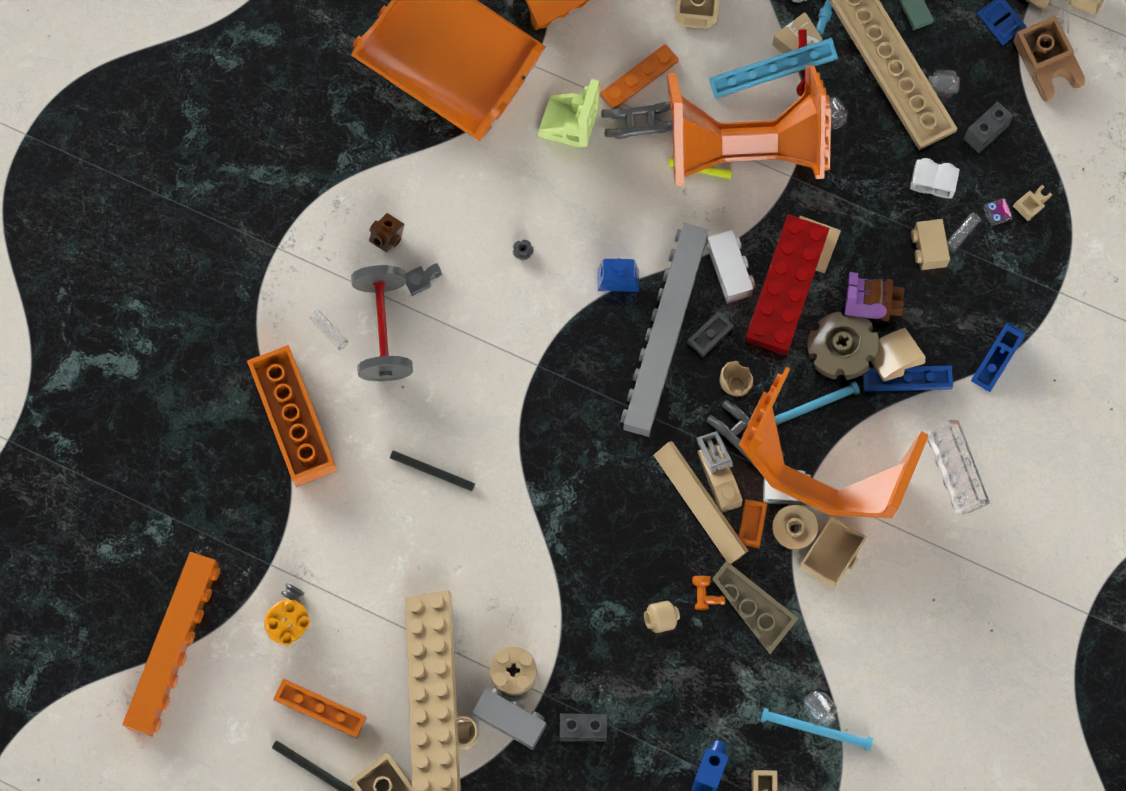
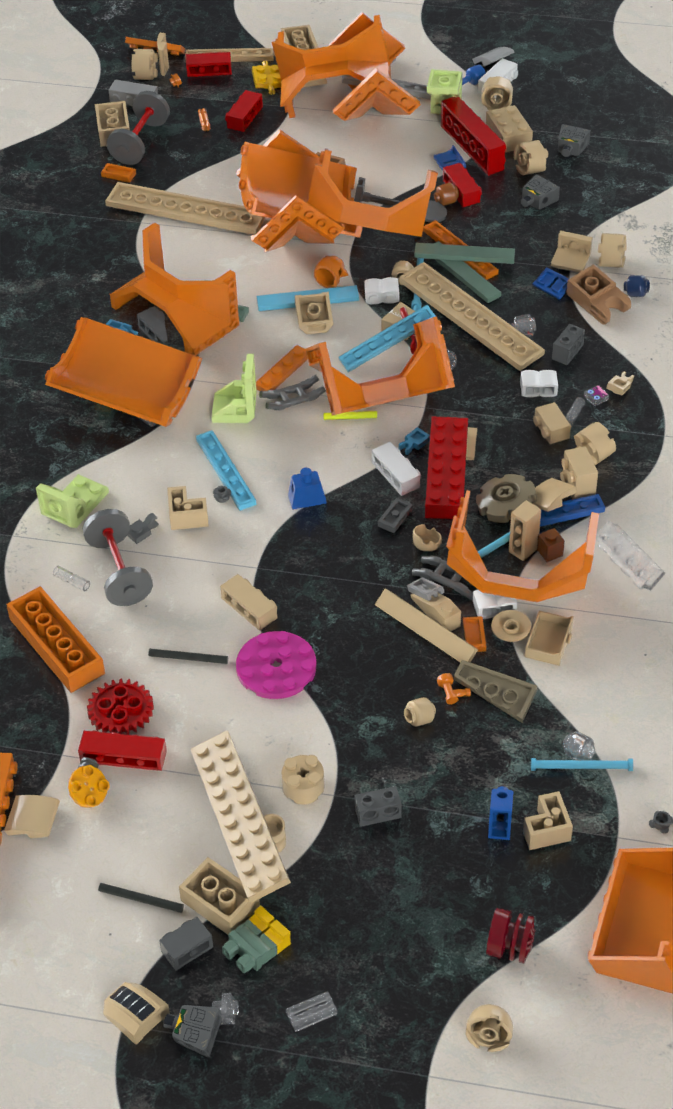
camera: 15 degrees left, 25 degrees down
(222, 638) = (32, 816): none -> tan slope
(320, 708) = (135, 848): orange plate -> none
(333, 581) = (123, 750): none -> red brick
(349, 224) = (72, 503): none -> yellowish green bracket
(354, 540) = (120, 707): none -> red gear
(386, 232) = (103, 499): reddish brown brick -> none
(470, 272) = (186, 512): none -> tan brick
(509, 718) = (311, 815): light grey brick -> none
(515, 416) = (249, 602): none -> tan brick
(529, 530) = (256, 660): none -> dark pink plate
(536, 214) = (226, 470): none -> medium azure tile
(665, 330) = (357, 521): light grey brick -> none
(764, 227) = (415, 439): none -> dark azure plate
(847, 407) = (524, 530): none -> tan brick
(873, 298) = (519, 462): hips -> none
(873, 426) = (550, 545): none -> dark orange brick
(937, 335) = (580, 472): none -> tan brick
(969, 292) = (596, 441): none -> tan brick
(998, 356) = (634, 479): blue slope -> none
(1102, 53) = (637, 286): none -> dark blue head

